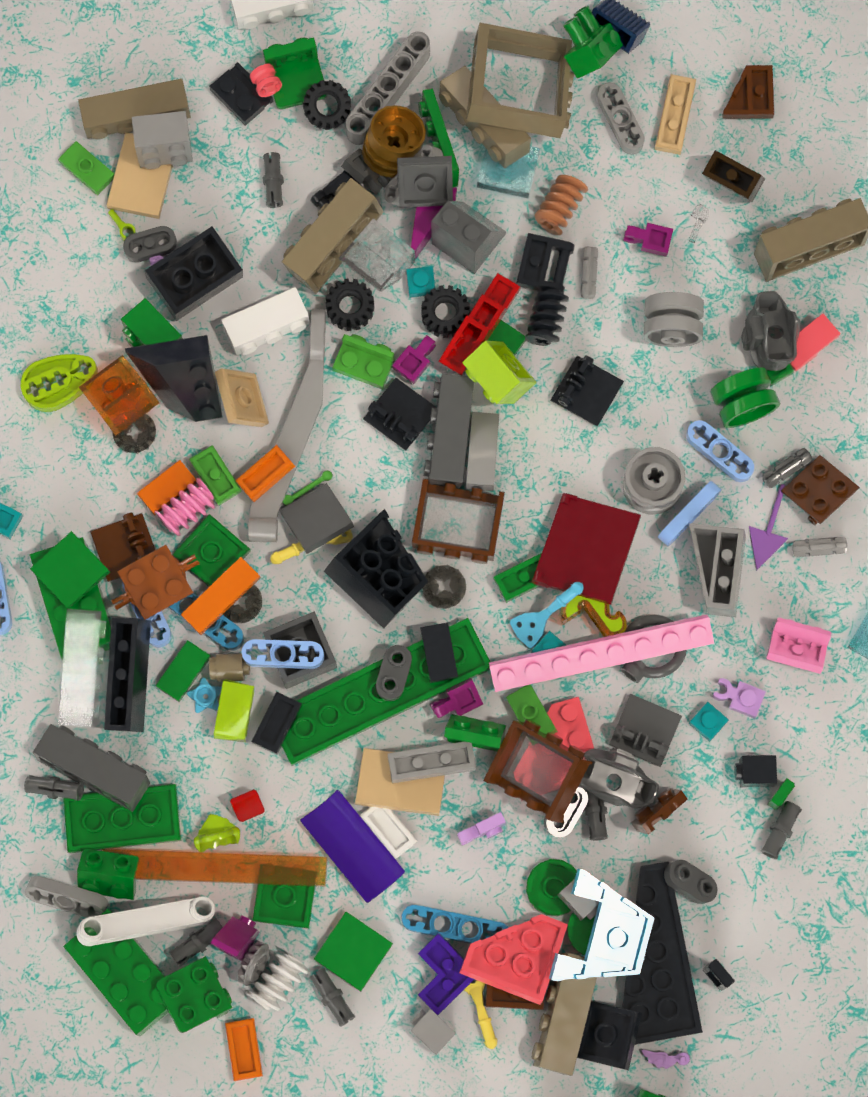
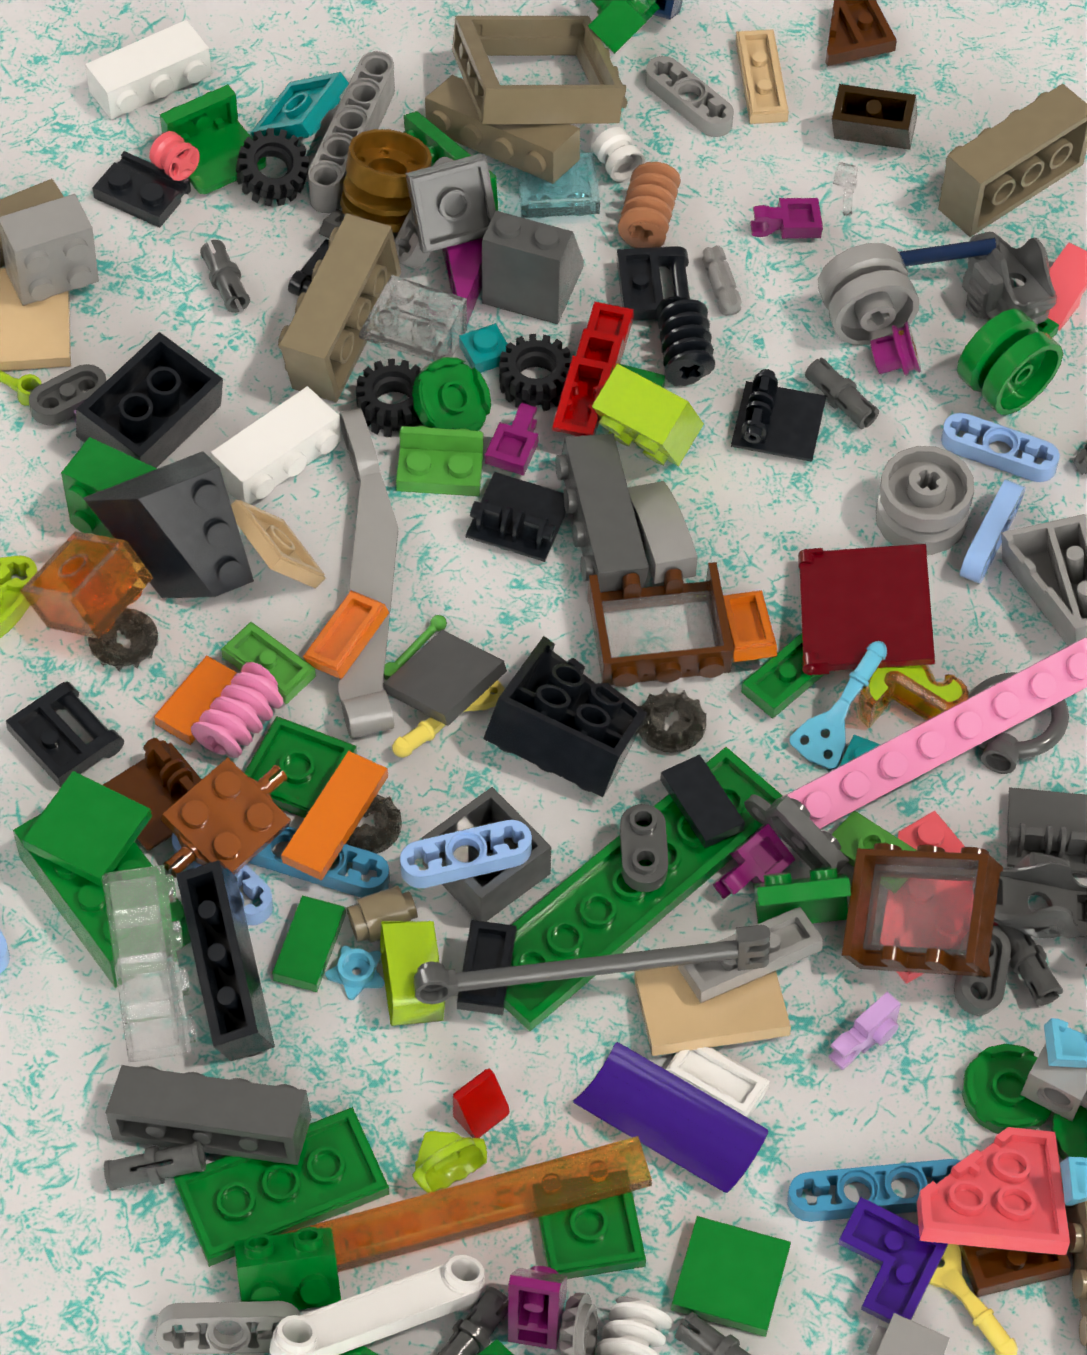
camera: 20 degrees left, 20 degrees down
(72, 490) = (54, 742): none -> black plate
(240, 731) = (750, 949): none -> dark grey hinge
(358, 63) = (303, 105): none -> teal plate
(384, 318) = (451, 395): none -> green tile
(485, 685) = (793, 824): none -> dark grey hinge
(512, 536) = (750, 626): none -> orange tile
(555, 155) = (617, 152): none -> white wheel
(634, 382) = (842, 393): none -> dark grey pin
(680, 363) = (896, 351): none -> magenta piece
(719, 295) = (948, 252): none -> dark blue bar

